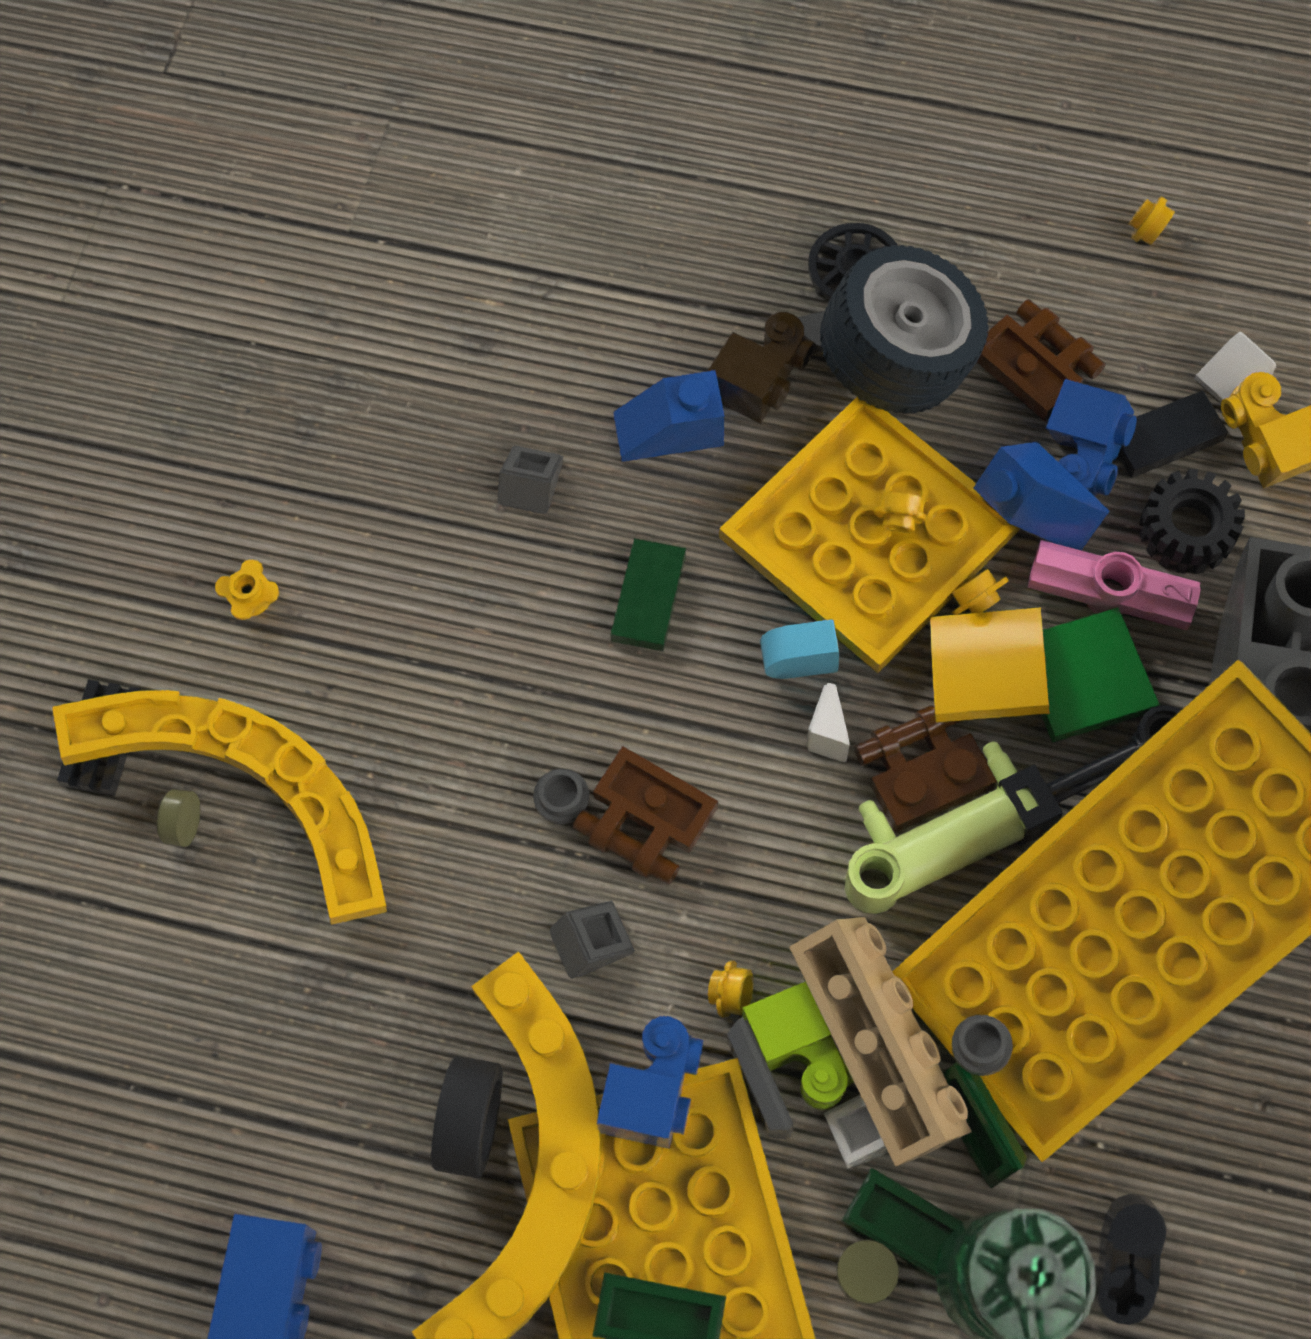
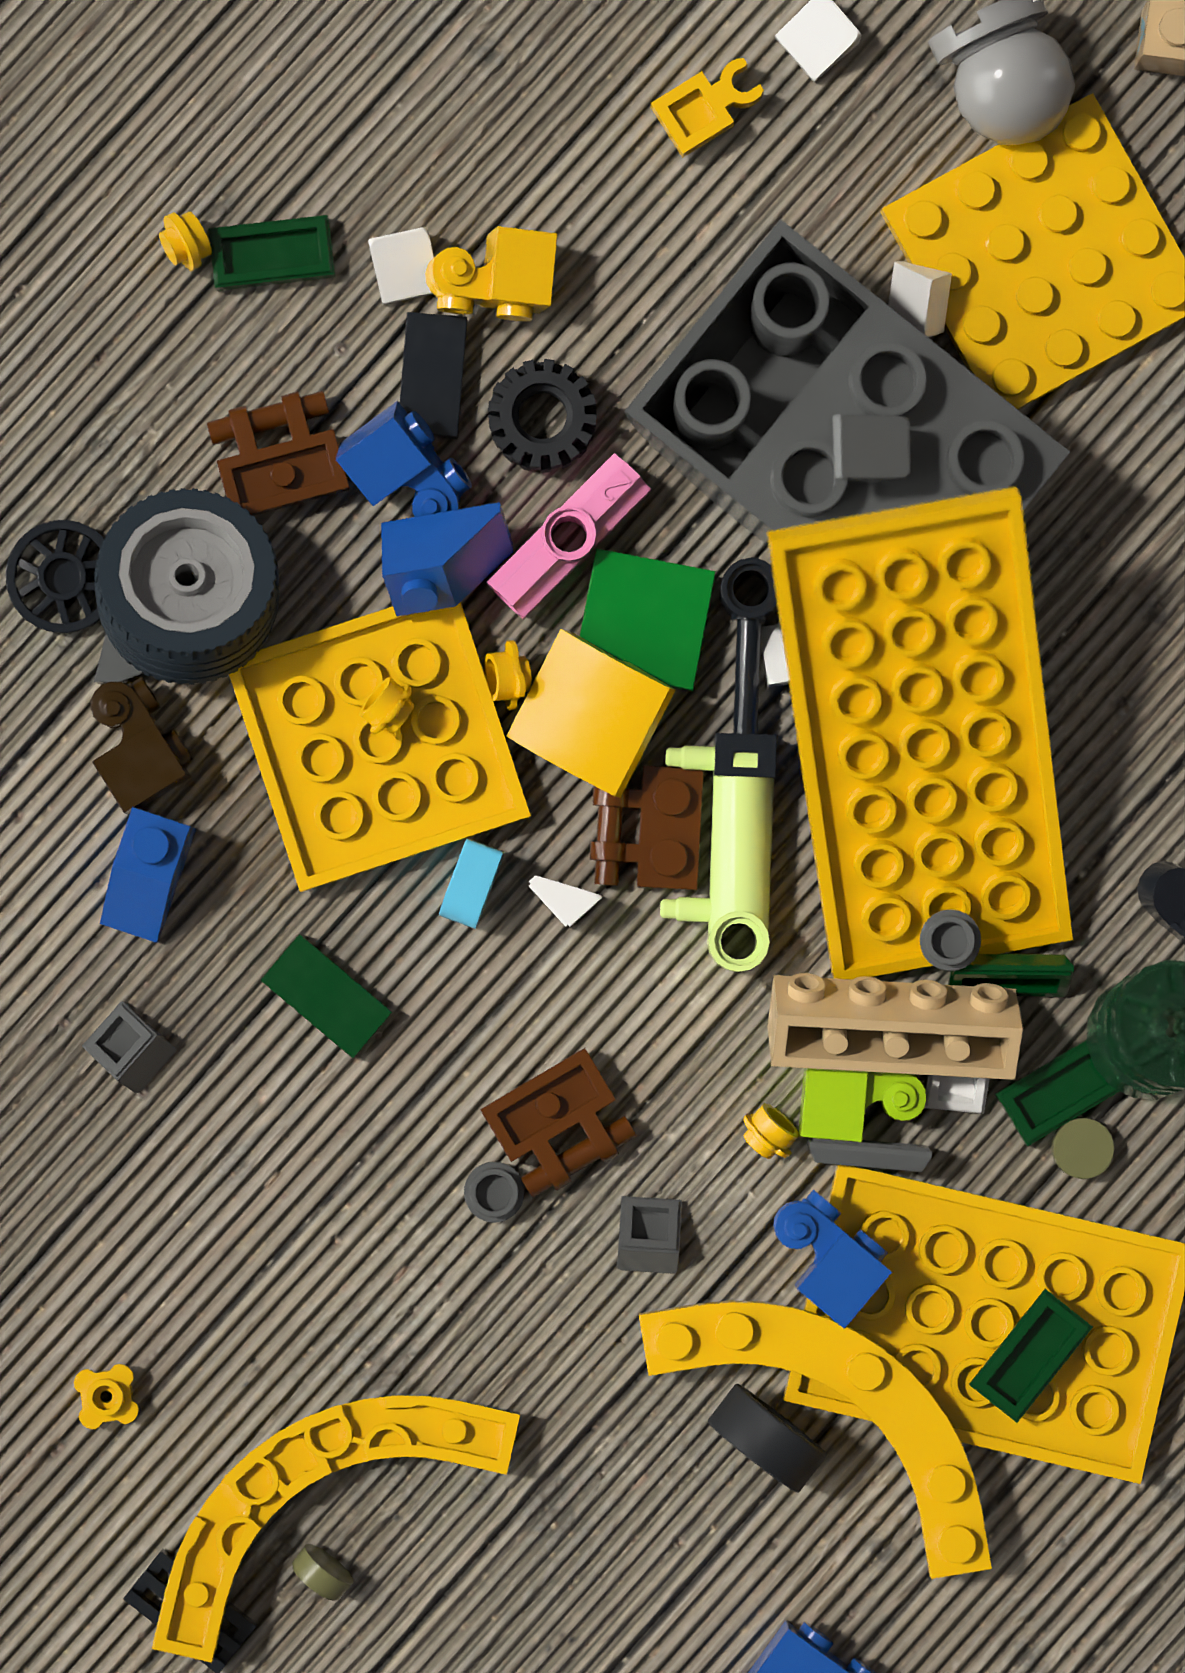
camera: 65 degrees left, 20 degrees up
(1180, 286) = (271, 252): none -> dark green tile

